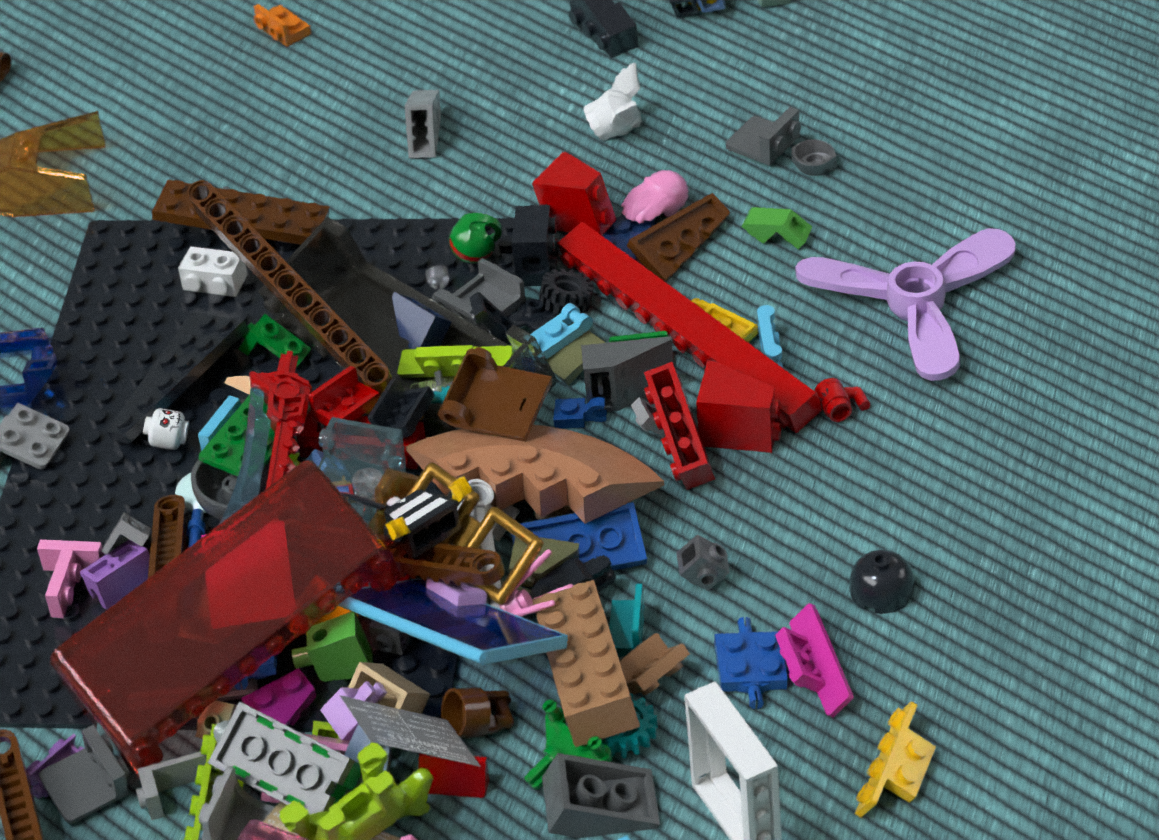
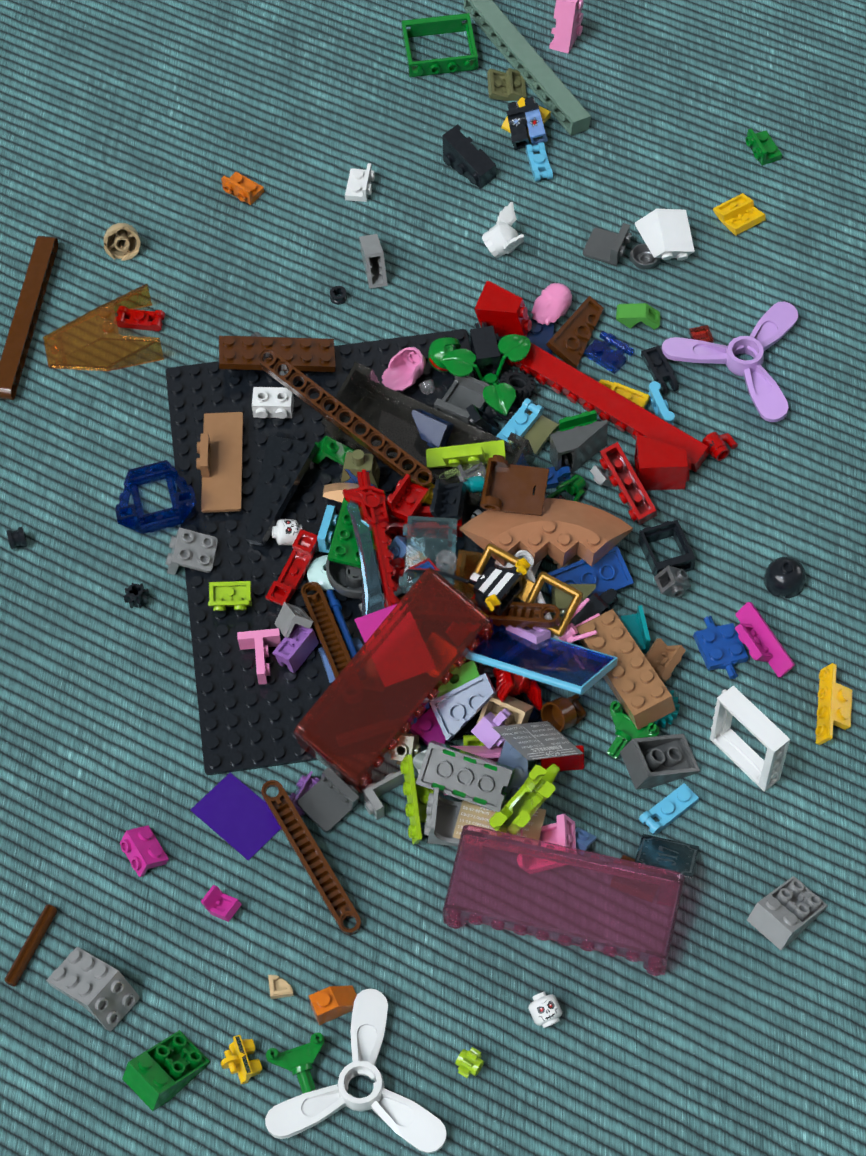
camera: 15 degrees left, 15 degrees up
(54, 496) = (229, 594): none -> lime bracket
(79, 159) = (140, 319): none -> red plate
(90, 66) = (121, 241): none -> tan cylinder
(111, 334) = (221, 462): none -> medium nougat bracket
(159, 480) = (294, 569): none -> red slope
(311, 361) = (358, 461): none -> olive torso
(319, 671) = (462, 704): none -> wing
(361, 160) = (335, 291): none -> black bush
(411, 250) = (404, 369): none -> bright pink hair
(413, 660) = (513, 684): none -> red helmet
(443, 34) = (359, 184): none -> white bracket
(530, 292) = (498, 396): none -> green plant
(605, 423) = (572, 486): none -> green plant
(704, 32) = (539, 162): none -> medium azure plate
(714, 273) = (607, 357): none -> clear blue plate
(720, 498) = (667, 529): none -> black window
(785, 295) = (659, 368): none -> black hinge
(851, 126) = (667, 233): none -> white slope
(864, 258) = (701, 333): none -> clear red tile
(972, 121) = (739, 214): none -> yellow slope
(1035, 44) = (763, 147): none -> green bracket

